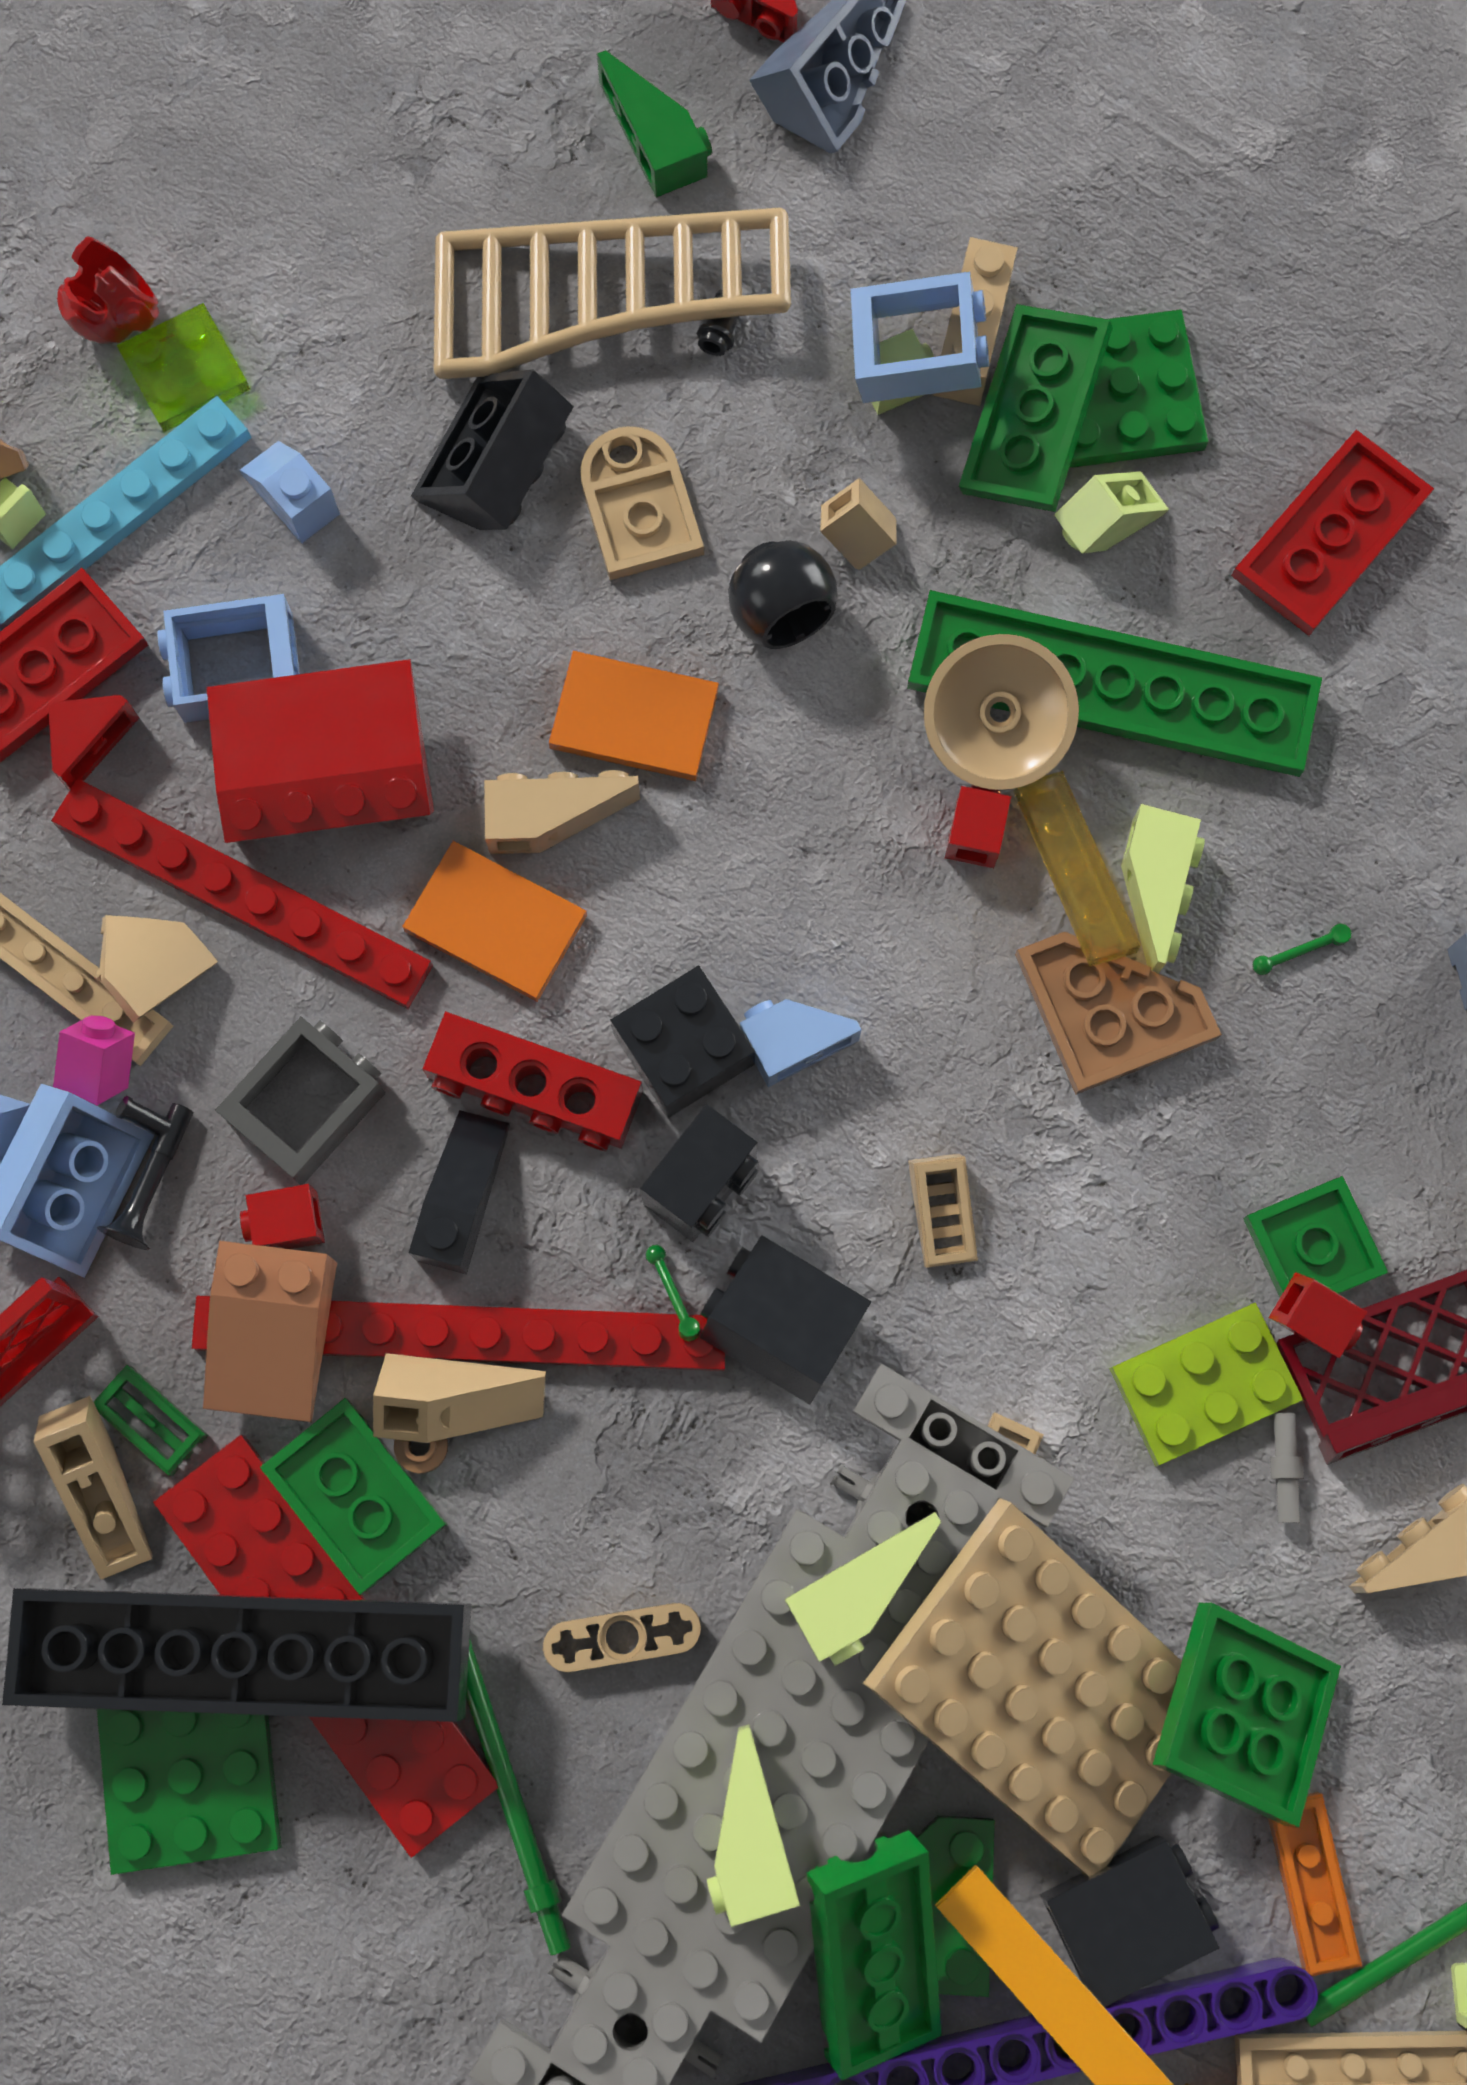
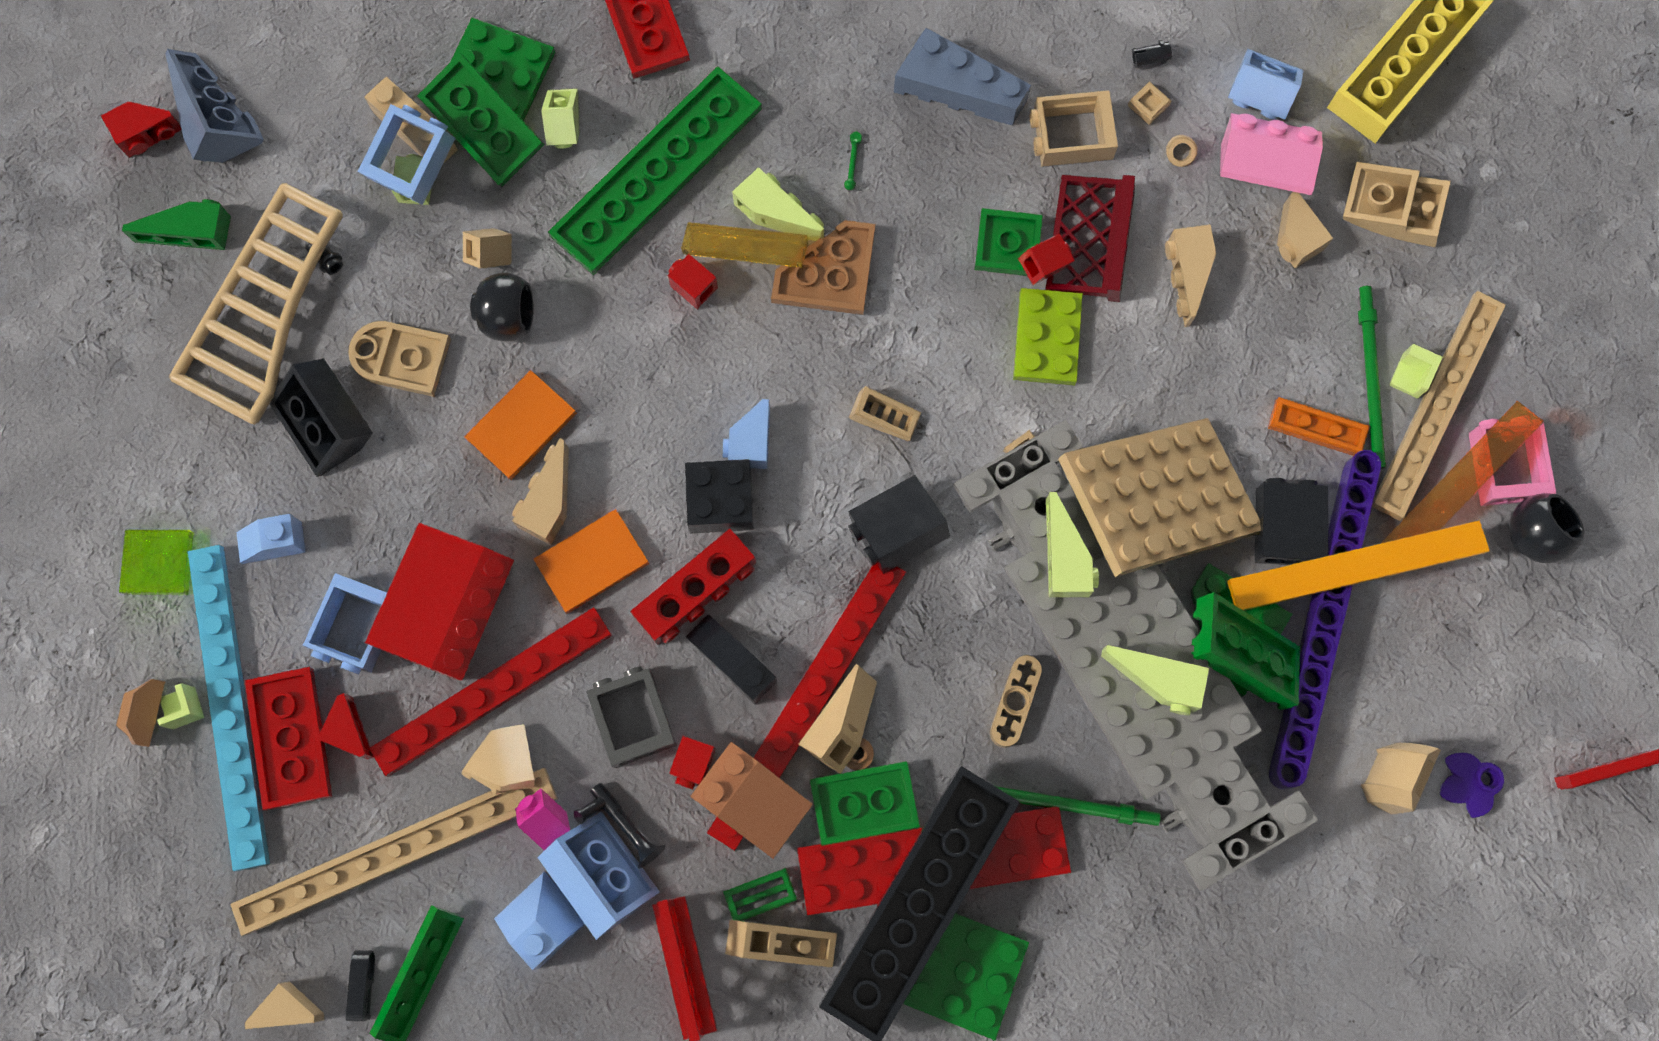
camera: 60 degrees left, 0 degrees up
(105, 296) = (87, 580): red helmet -> none
(688, 1327) = (875, 576): green hinge -> none
(700, 1174) = (797, 523): black brick -> none
(1039, 702) = (656, 216): tan dish -> none
(1247, 1715) = (1223, 407): green plate -> none
(1286, 1468) = (1111, 321): light grey bar -> none

